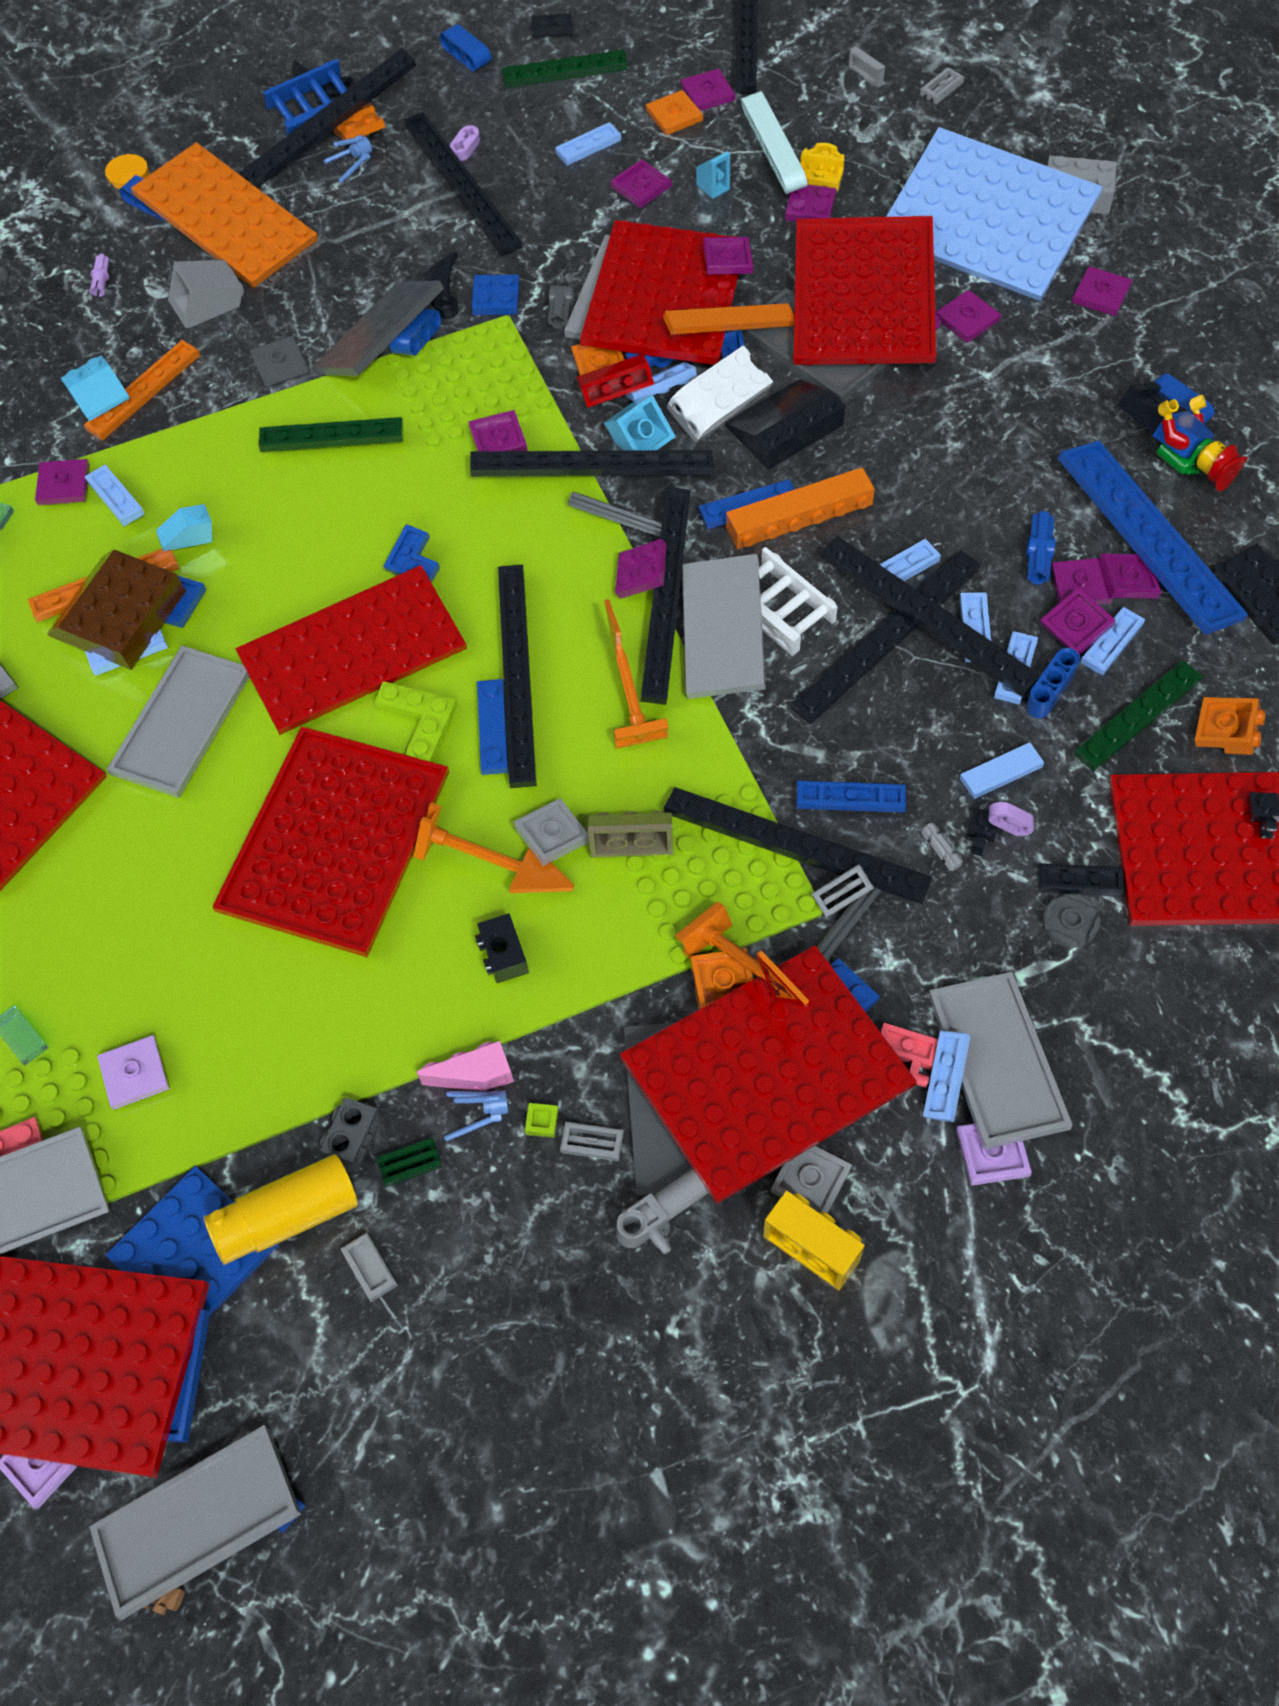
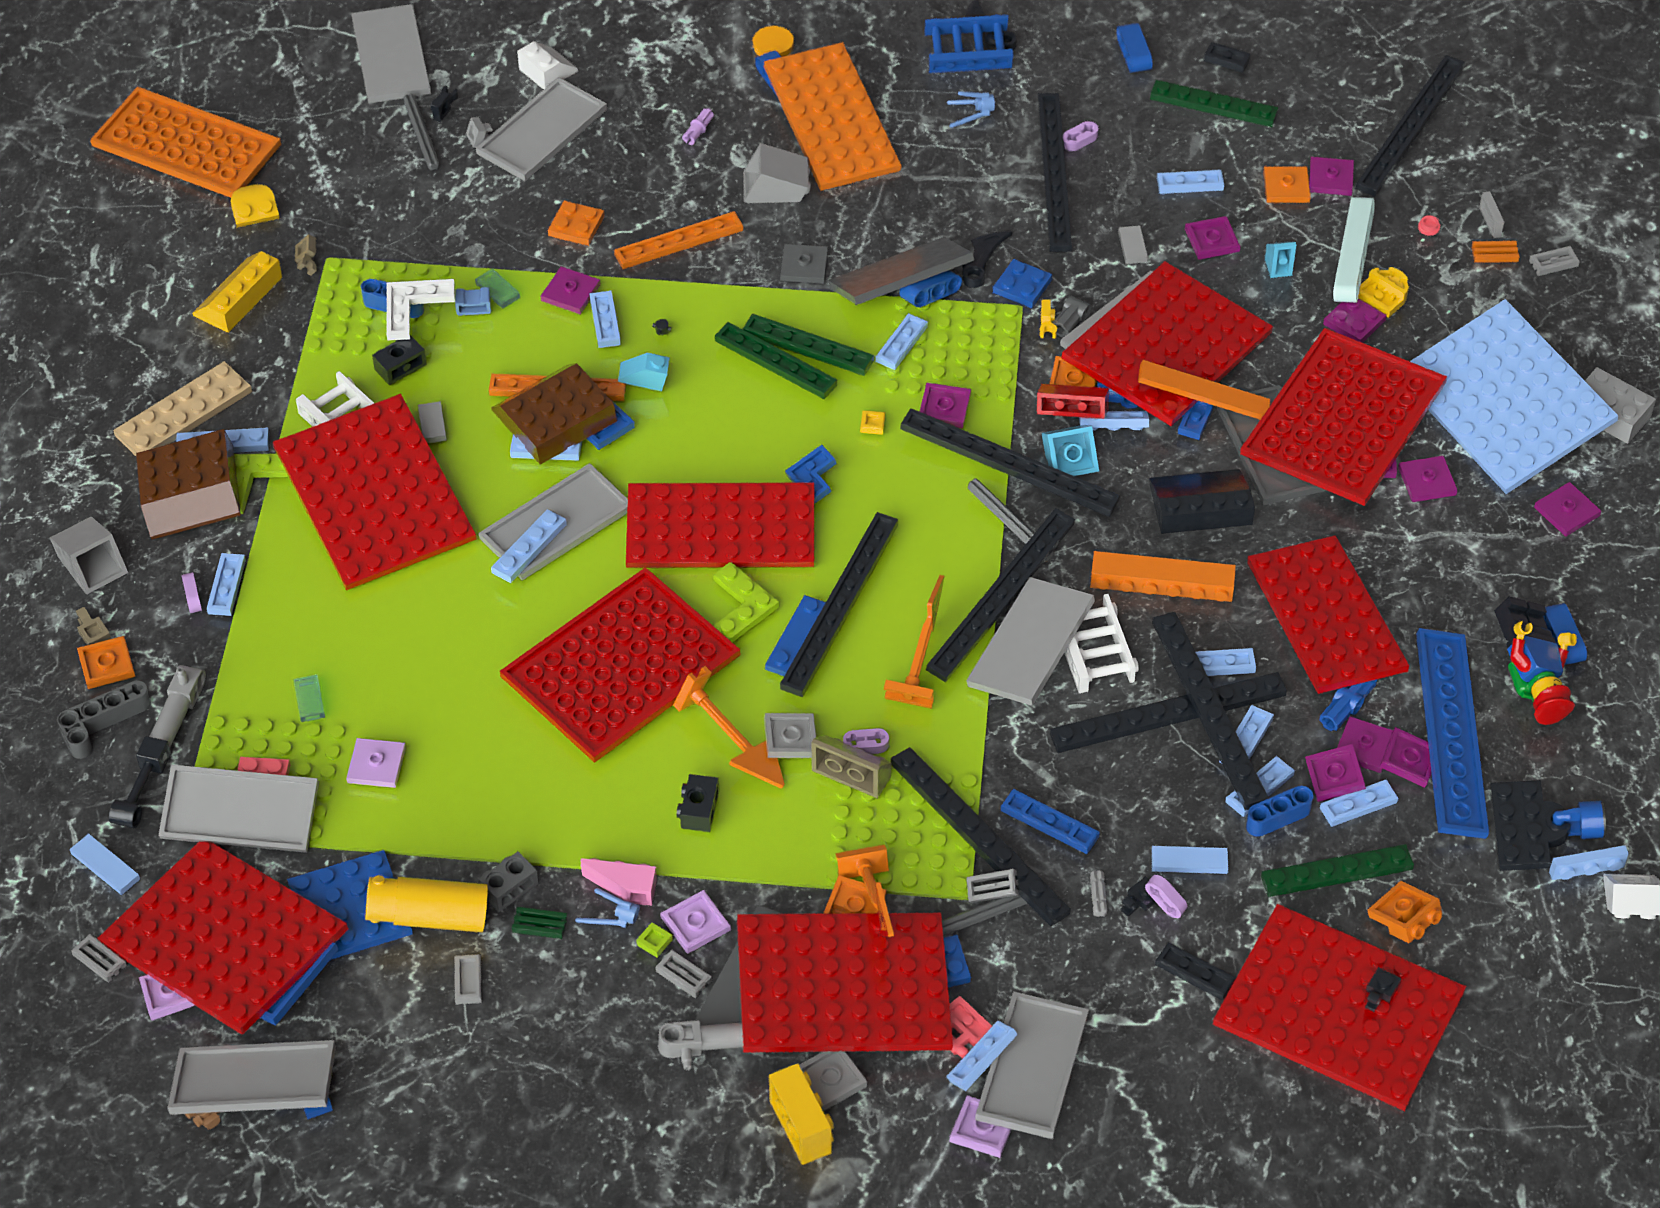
camera: 25 degrees right, 10 degrees down
(29, 415) = (576, 223): none -> orange plate
(95, 388) = (639, 223): medium azure slope -> none
(167, 759) = (528, 546): none -> light blue plate
(176, 479) = (662, 327): none -> black piece
(308, 462) = (776, 360): none -> dark green plate
(328, 118) = (967, 67): black plate -> none
(360, 123) = (994, 77): orange plate -> none
(418, 394) = (901, 341): none -> light blue tile
(438, 482) = (872, 422): none -> yellow tile
(539, 316) = (1047, 317): none -> yellow plate
(571, 1078) = (695, 921): none -> lavender plate
(573, 218) = (1132, 244): none -> light grey tile
(627, 801) = (866, 740): none -> lavender beam
(641, 569) = (992, 565): magenta plate -> none
(714, 513) = (1087, 546): blue plate -> none
(719, 394) = (1154, 451): white piece -> none
(728, 255) = (1239, 334): magenta plate -> none
(819, 97) = (1429, 225): none -> coral plate
(888, 97) = (1495, 251): none -> orange tile
(971, 477) = (1327, 614): none -> red plate
(1071, 921) = (1165, 997): dark grey tile -> none

